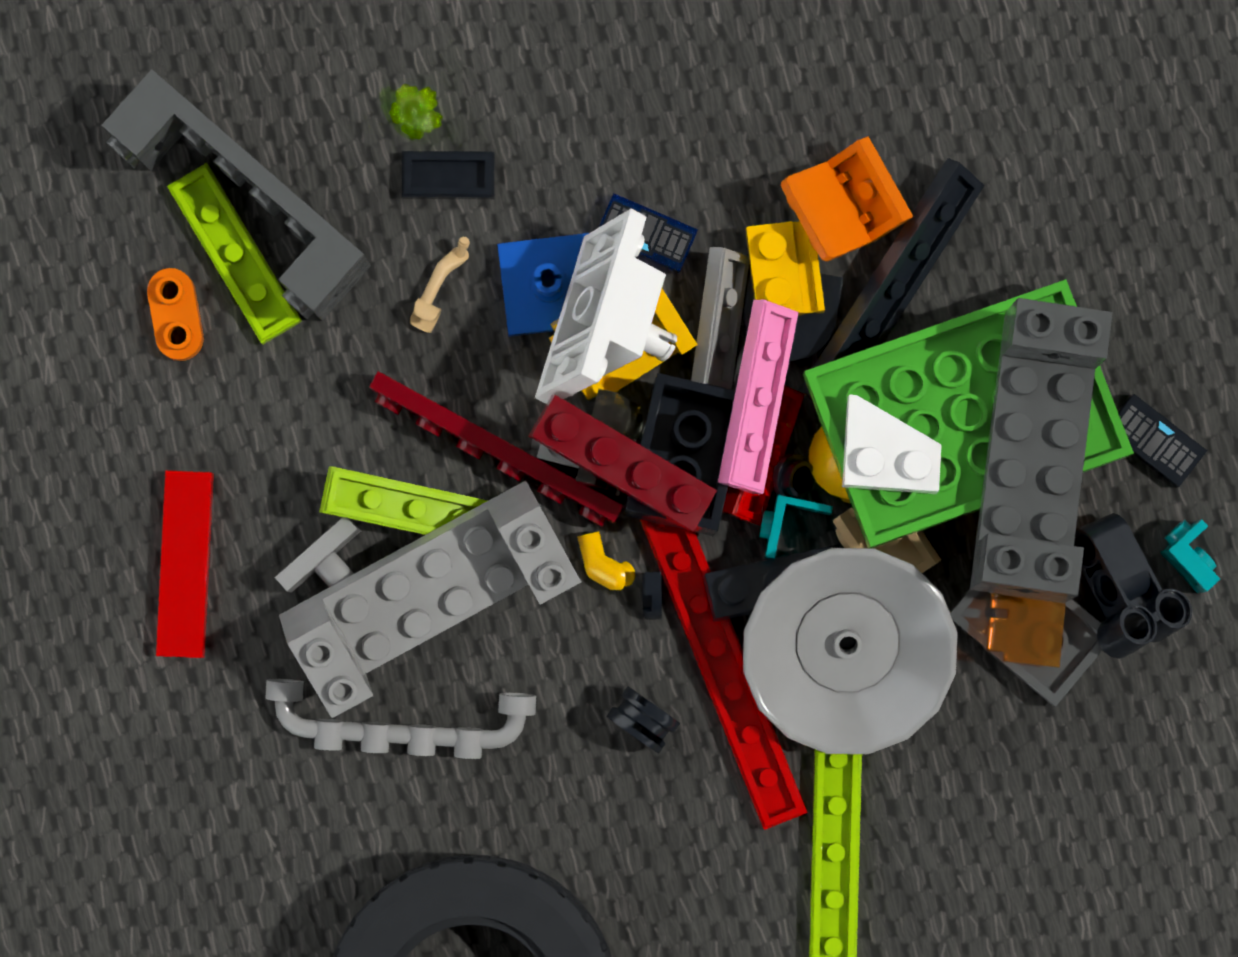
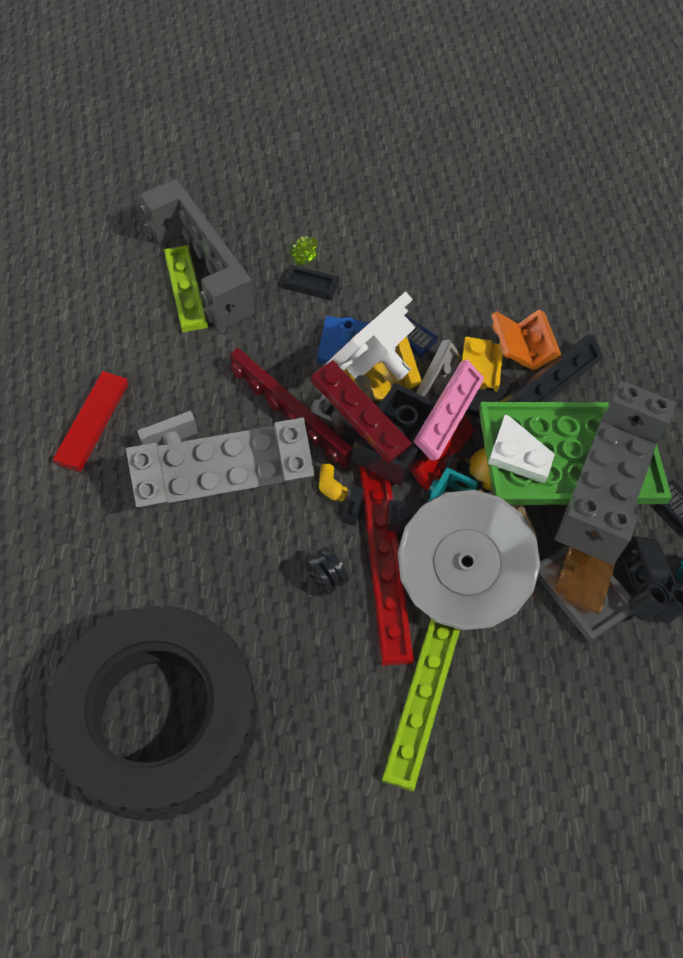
camera: 15 degrees right, 25 degrees down
(175, 313) = (144, 303): orange plate -> none
(377, 735) = (185, 546): light grey bar -> none
(391, 502) = (216, 409): lime tile -> none
(425, 314) = (276, 338): tan piece -> none

